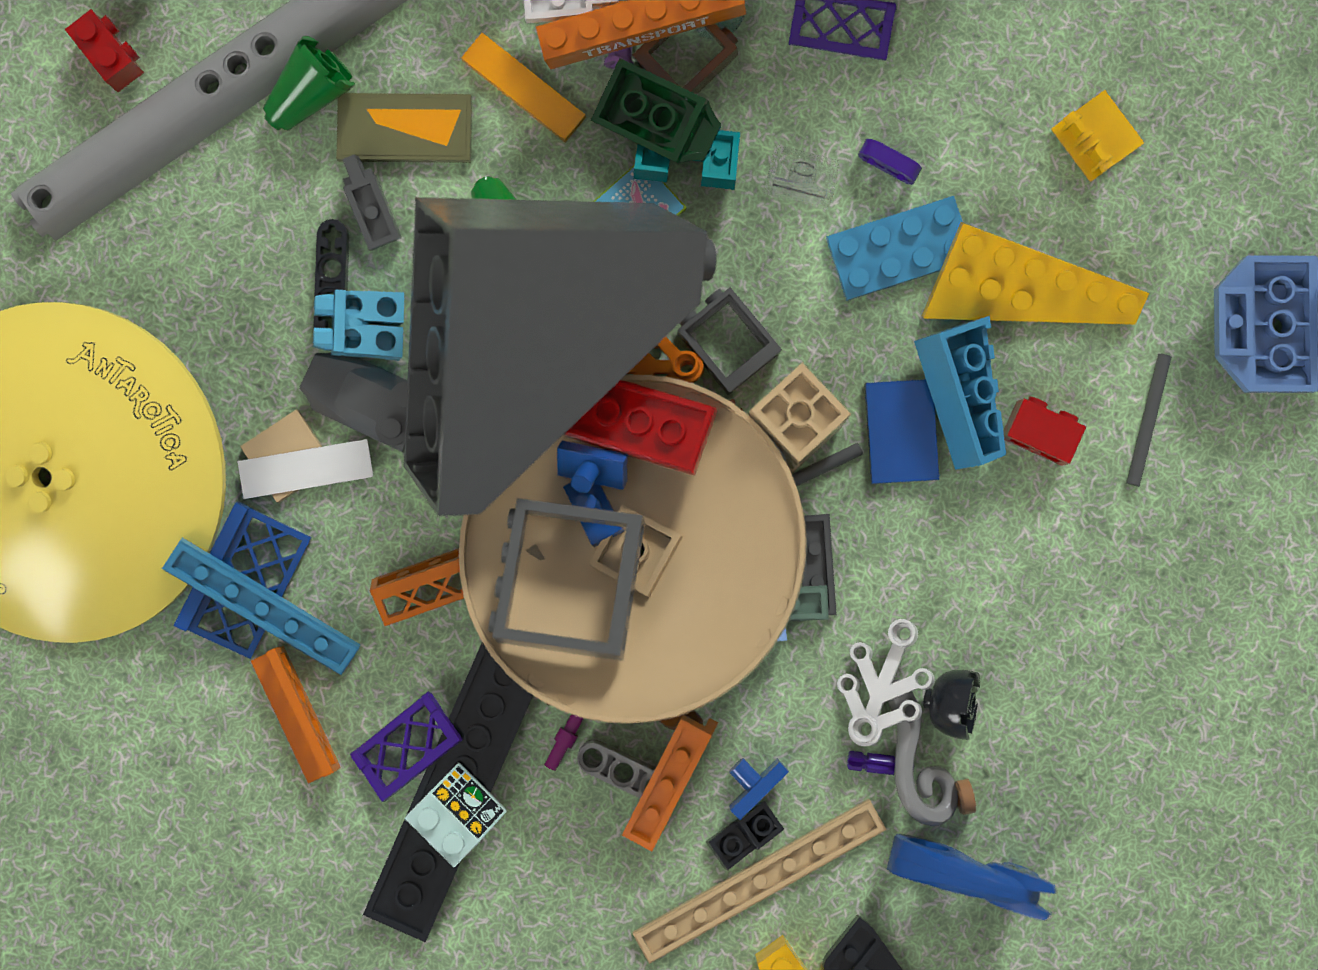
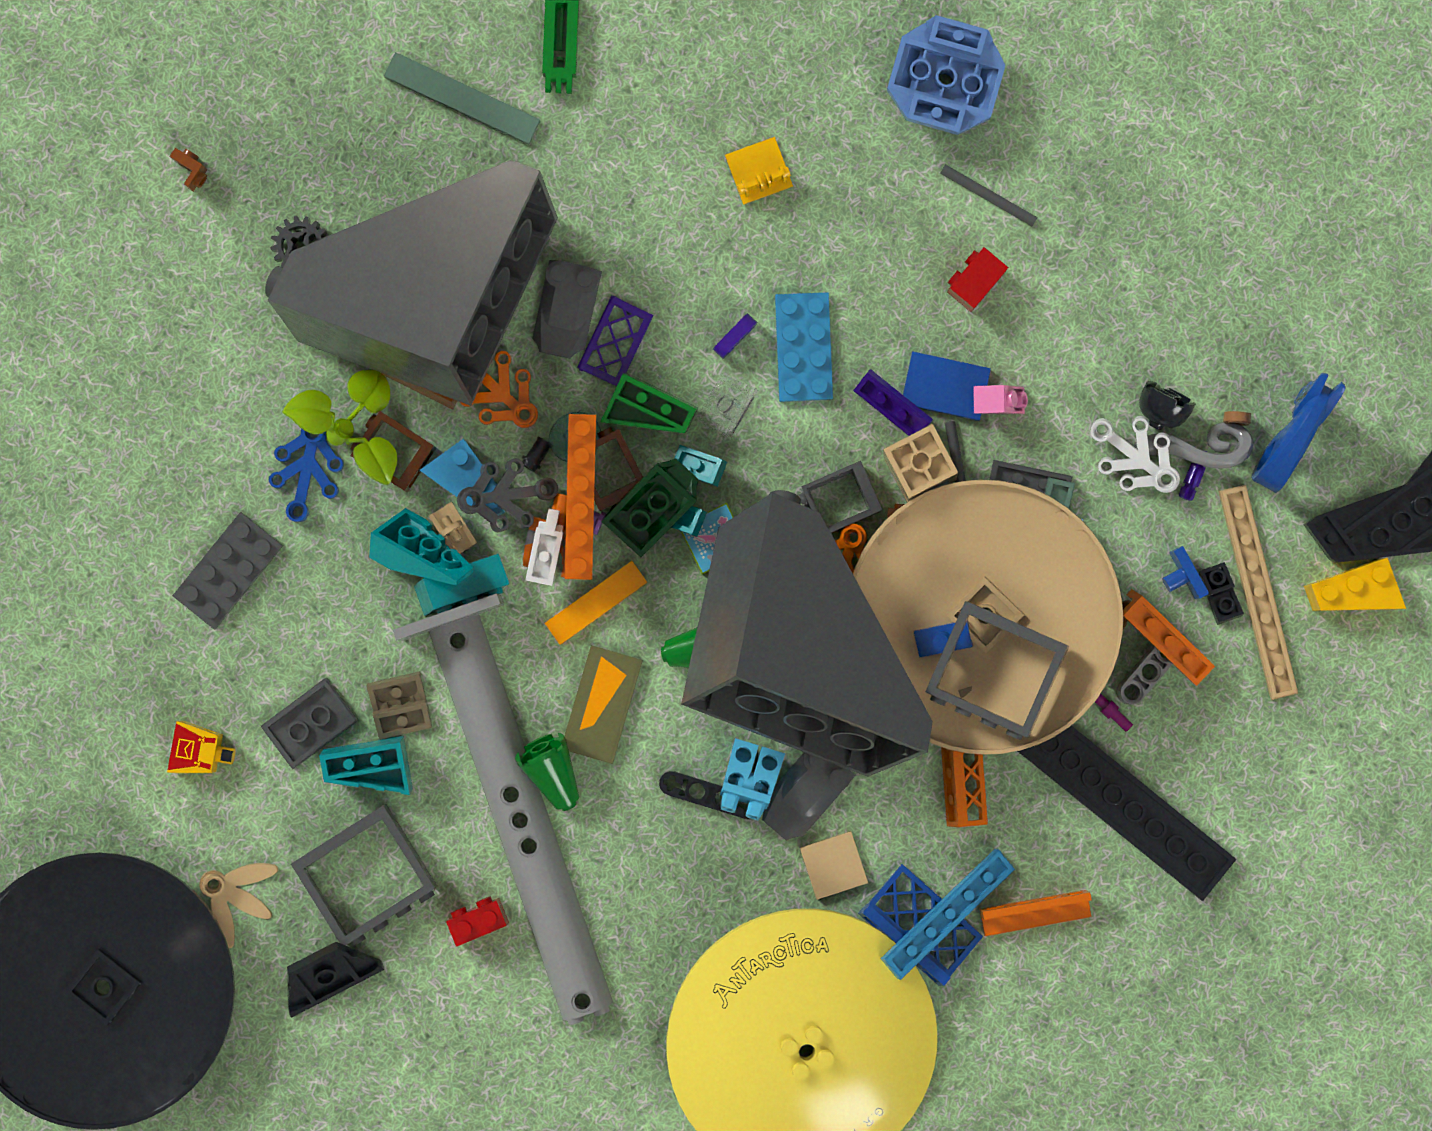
camera: 80 degrees left, 0 degrees up
(305, 469) = (848, 853): white sticker -> none
(369, 205) = (656, 747): dark grey hinge -> none
(431, 755) = (1095, 815): dark purple window -> none
(456, 814) = (1147, 807): light aqua slope -> none
(591, 466) = (914, 630): blue tile -> none
(648, 426) = (898, 575): red tile -> none
(775, 76) = (647, 406): none -> green wedge
(863, 368) = (892, 403): none -> dark purple tile
(904, 498) = (999, 399): none -> bright pink slope
(964, 391) = (929, 330): dark azure wedge -> none
(1017, 283) = (855, 270): yellow wing -> none

